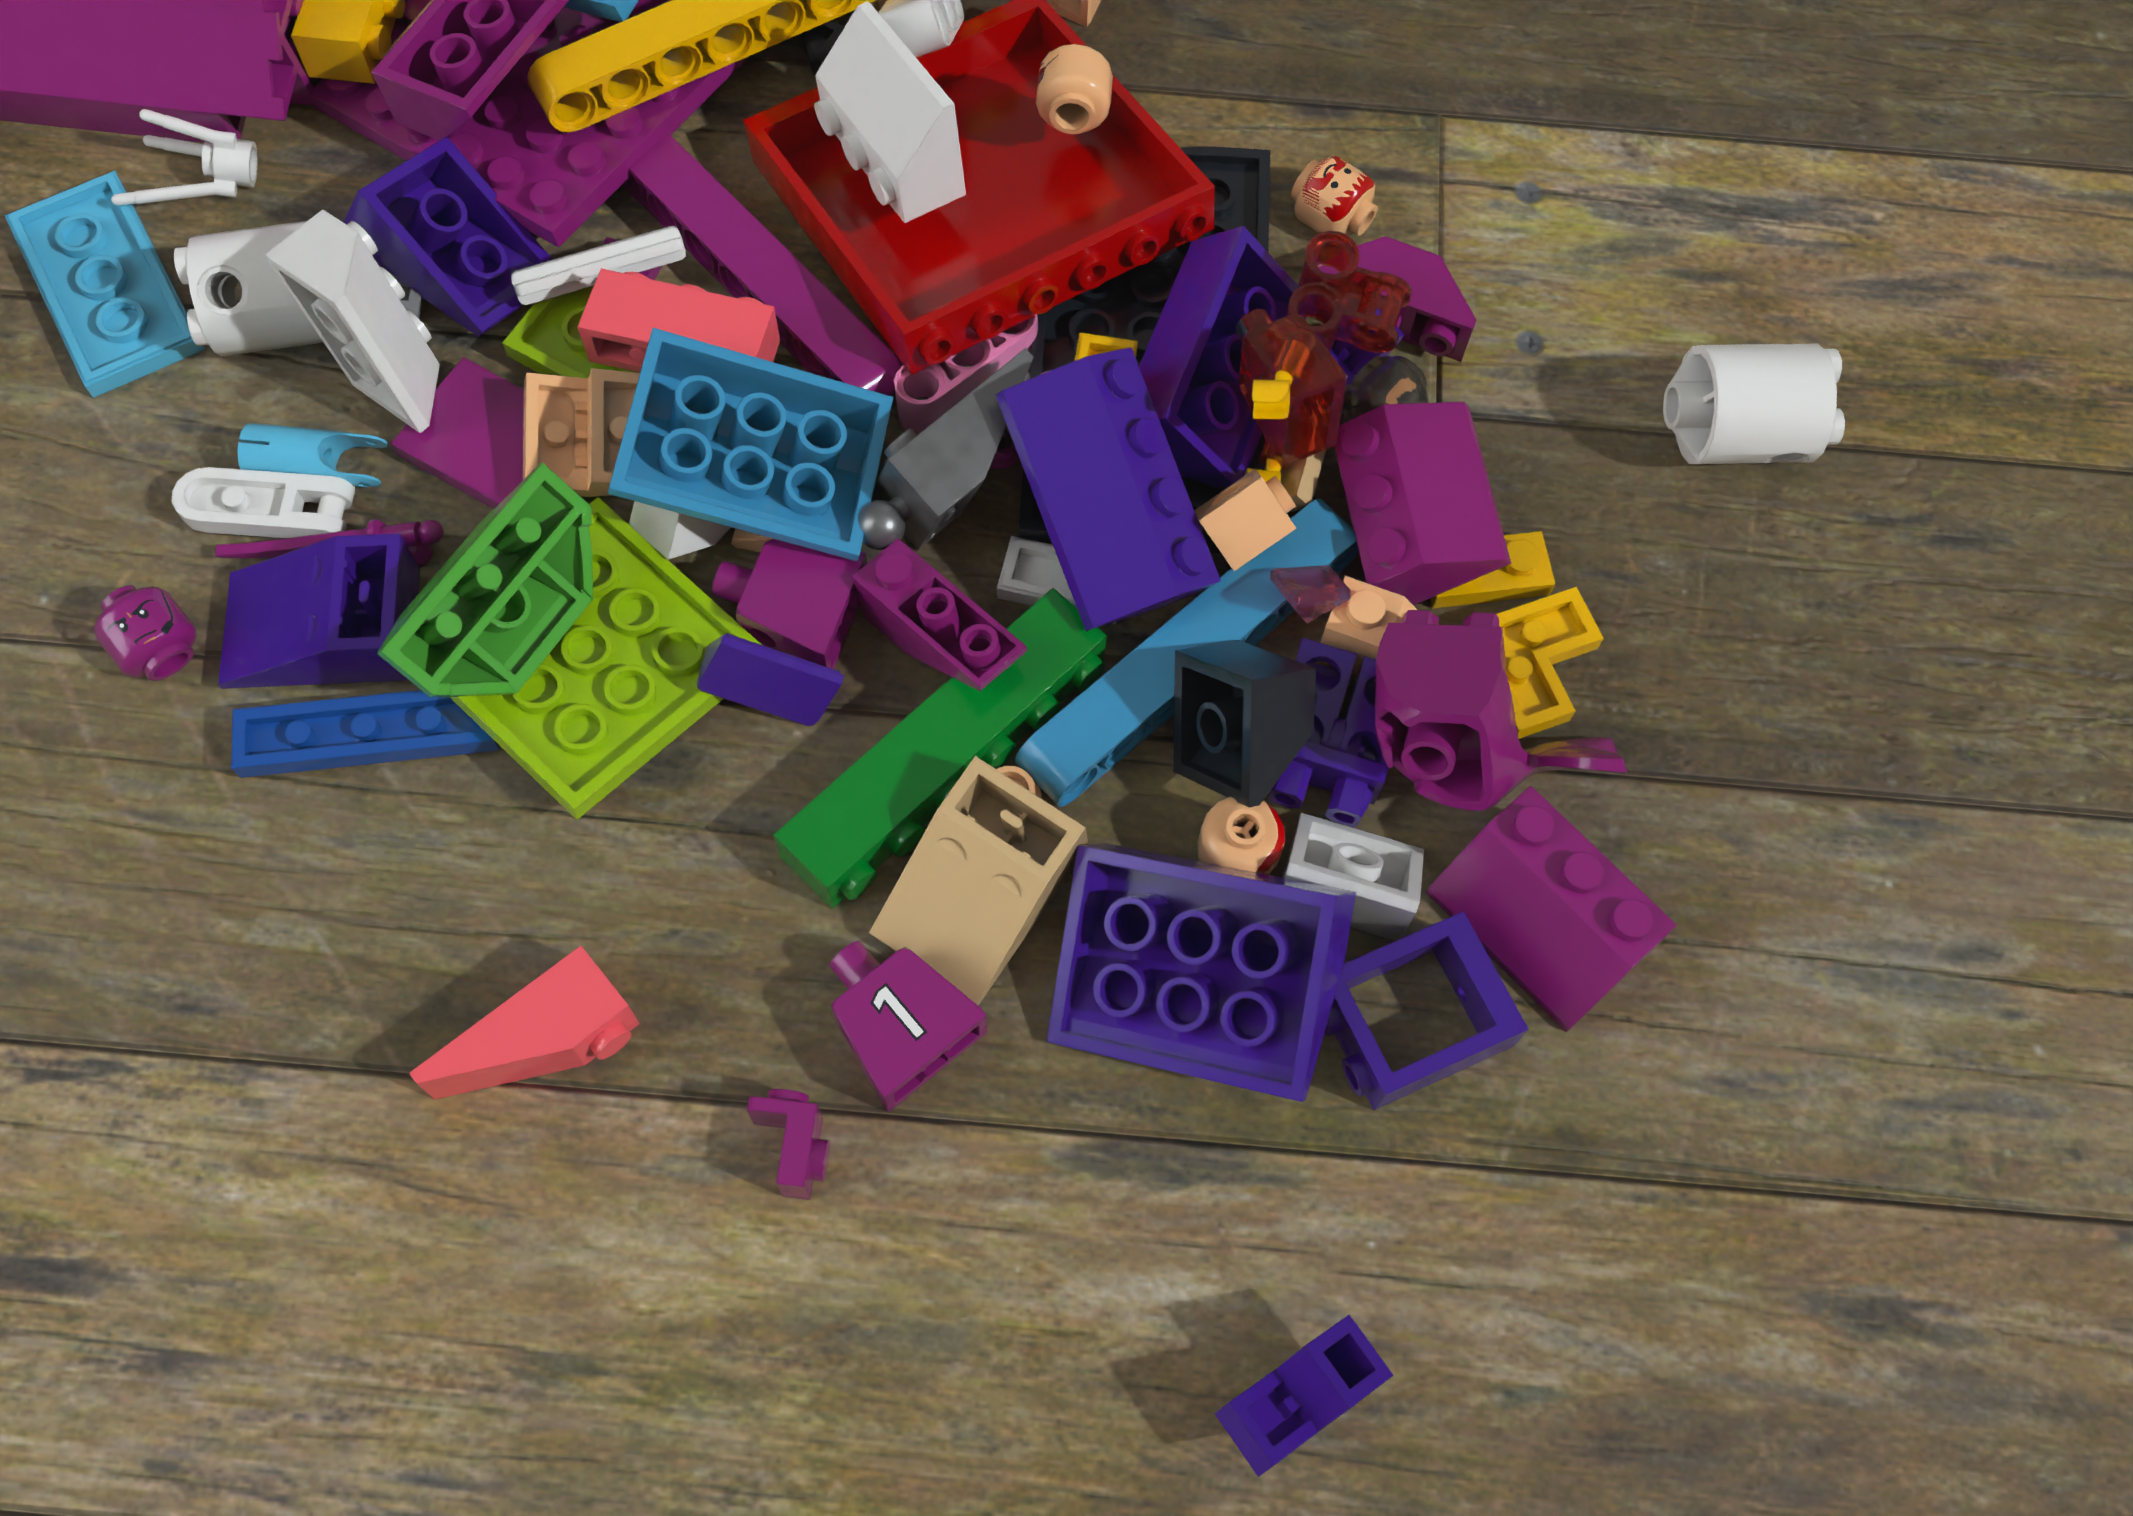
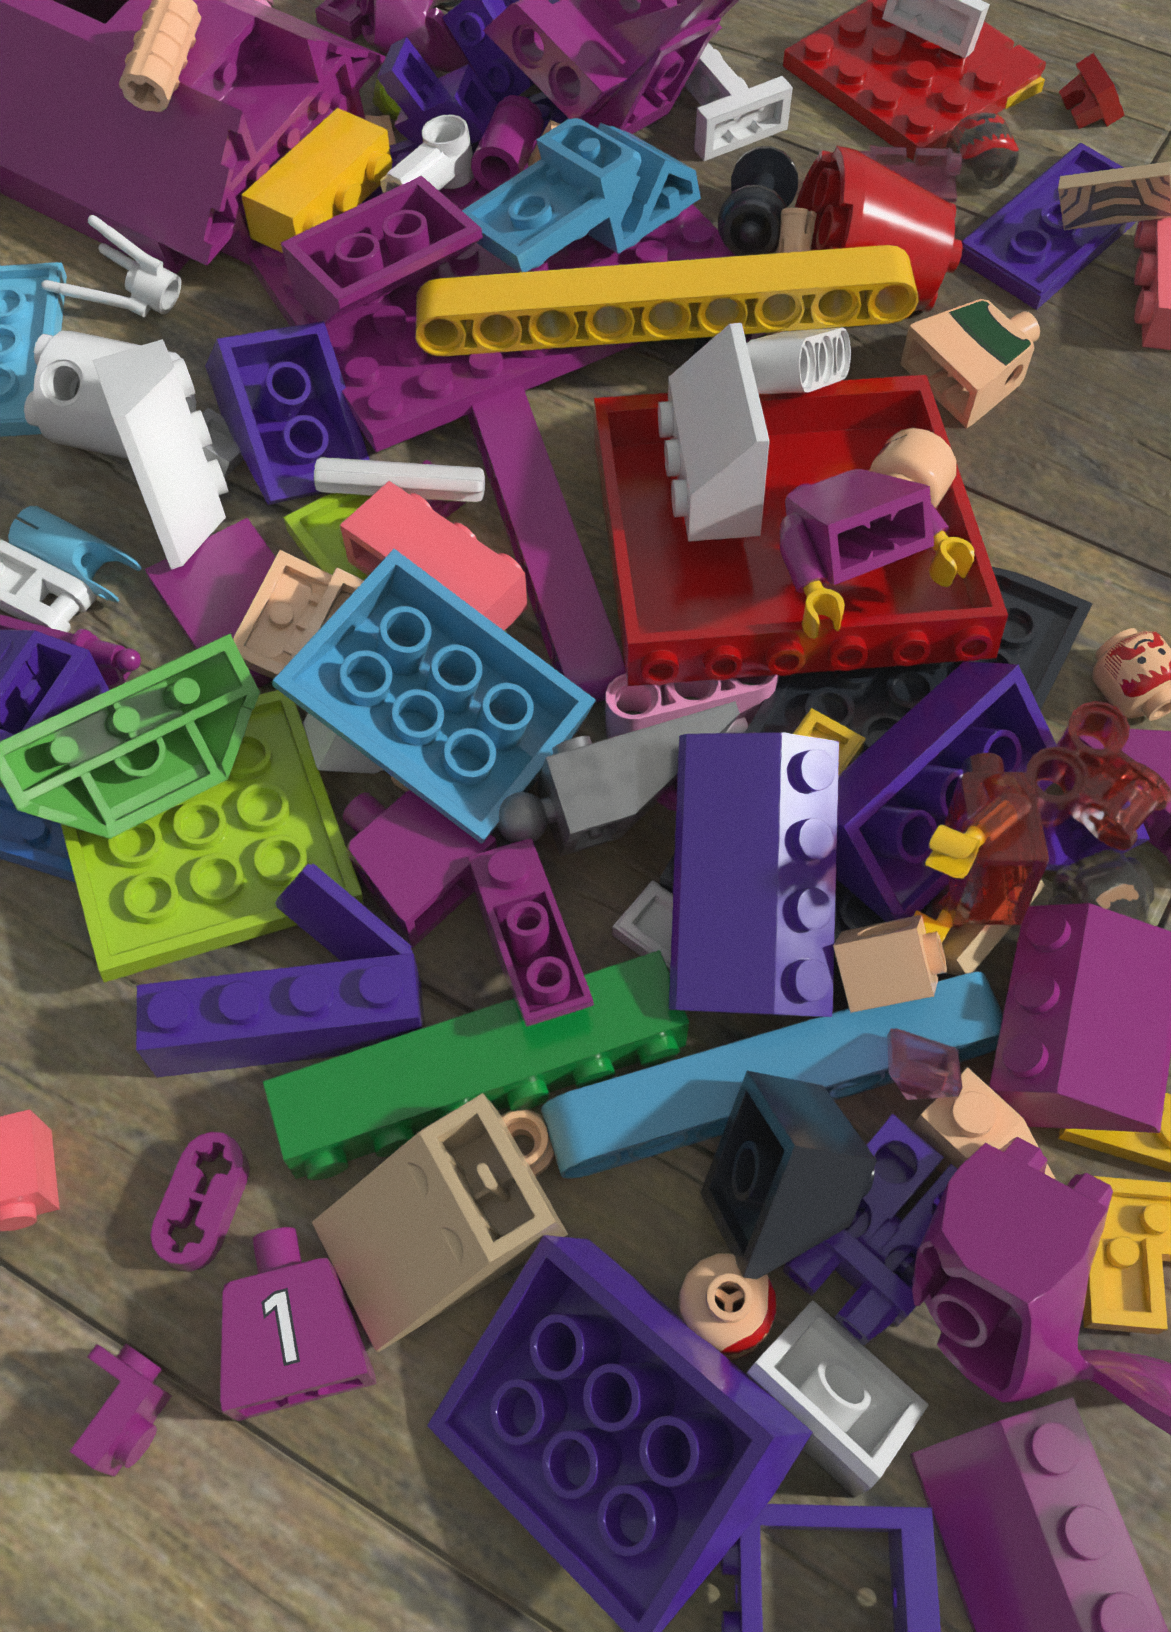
camera: 30 degrees right, 5 degrees down
(751, 778) = (276, 1014): none -> dark purple brick
(778, 957) = (186, 1194): none -> magenta beam
(1054, 155) = (858, 526): none -> magenta torso

